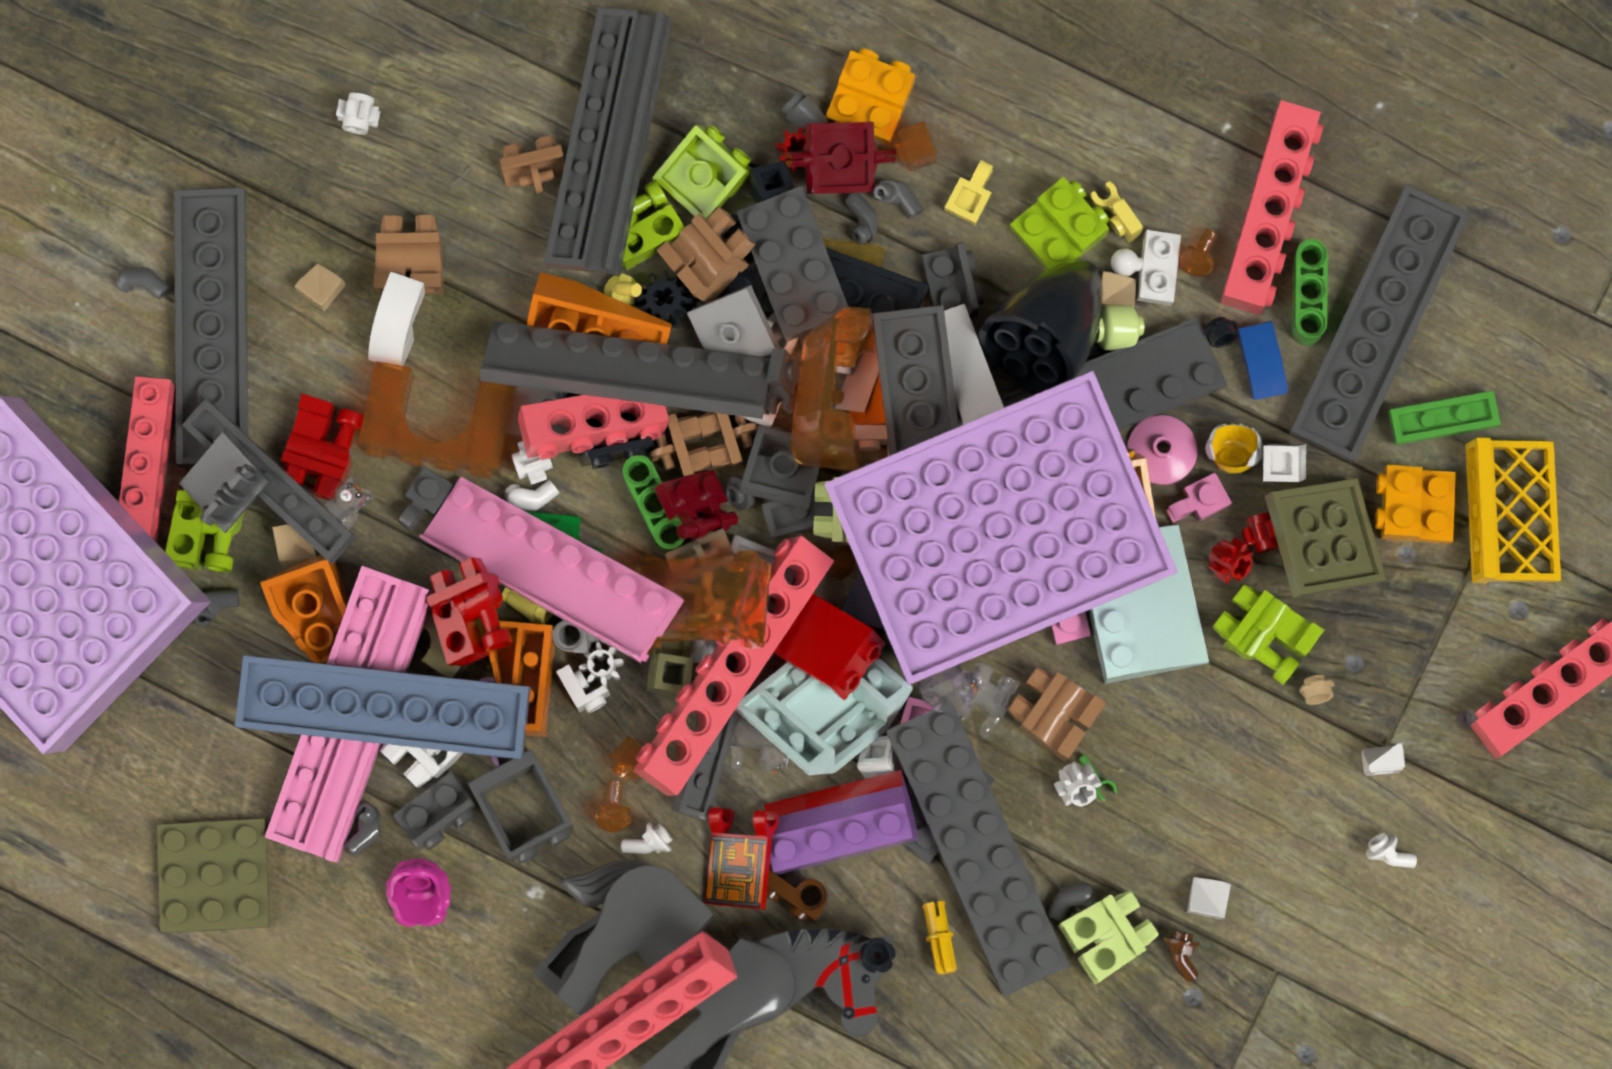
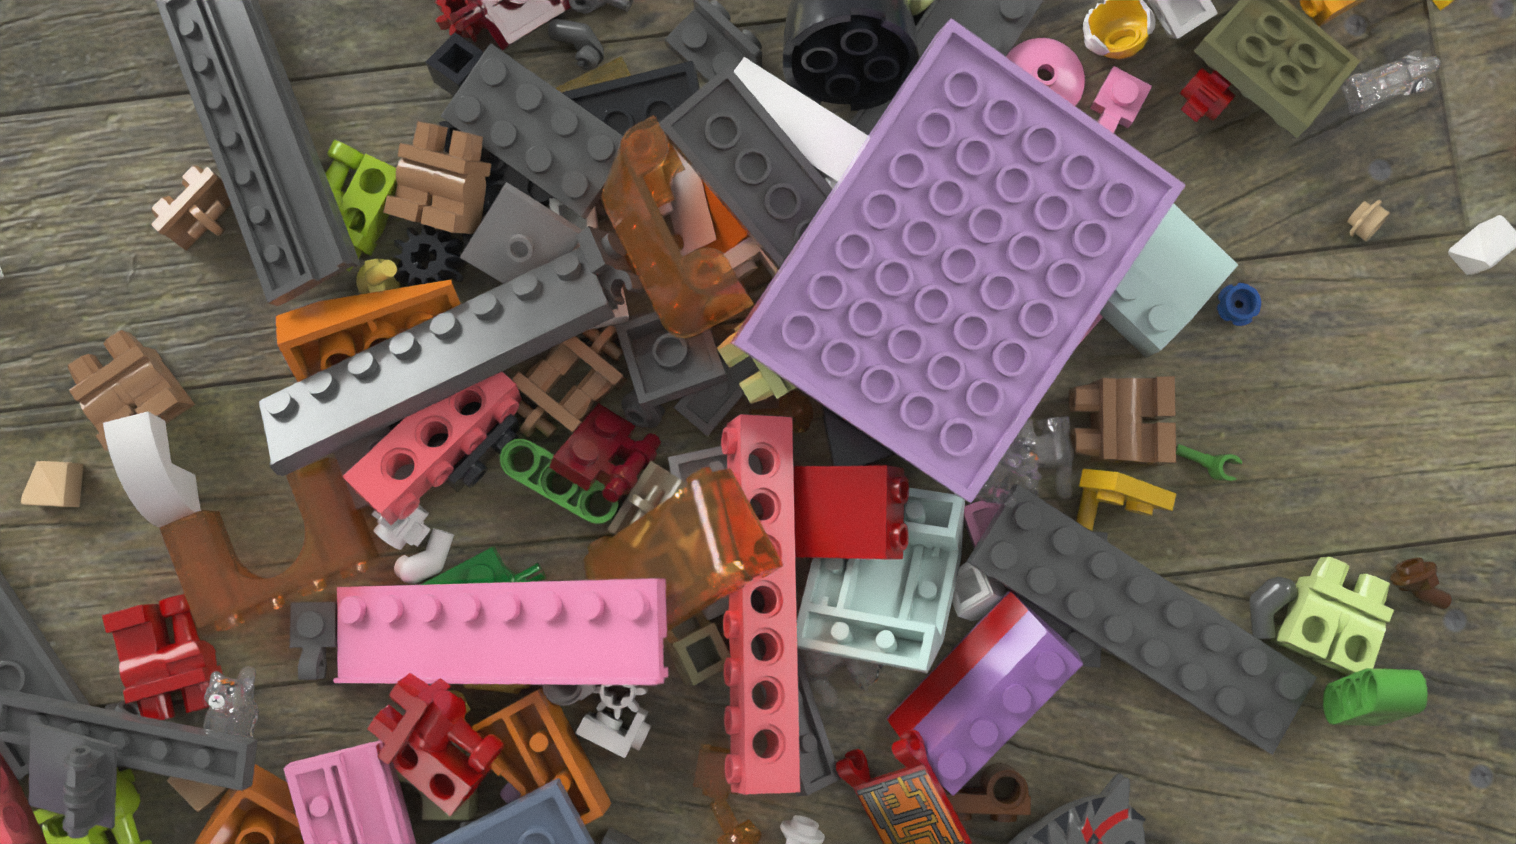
camera: 30 degrees left, 5 degrees up
(703, 171) = (378, 97): lime plate -> none
(887, 953) = (1141, 820): black plate -> none
(940, 937) = (1164, 738): yellow axle -> none
(1015, 747) = (1115, 490): none -> yellow plate
(1077, 784) = (1198, 481): white gear -> none
(1089, 990) = (1375, 697): none -> bright green beam
(1180, 688) = (1247, 296): none -> blue plate
(1208, 898) = (1408, 508): white slope -> none
(1230, 560) = (1193, 144): red gear -> none
(1267, 621) = (1270, 183): lime hips -> none
(1391, 605) = (1394, 79): none -> clear animal

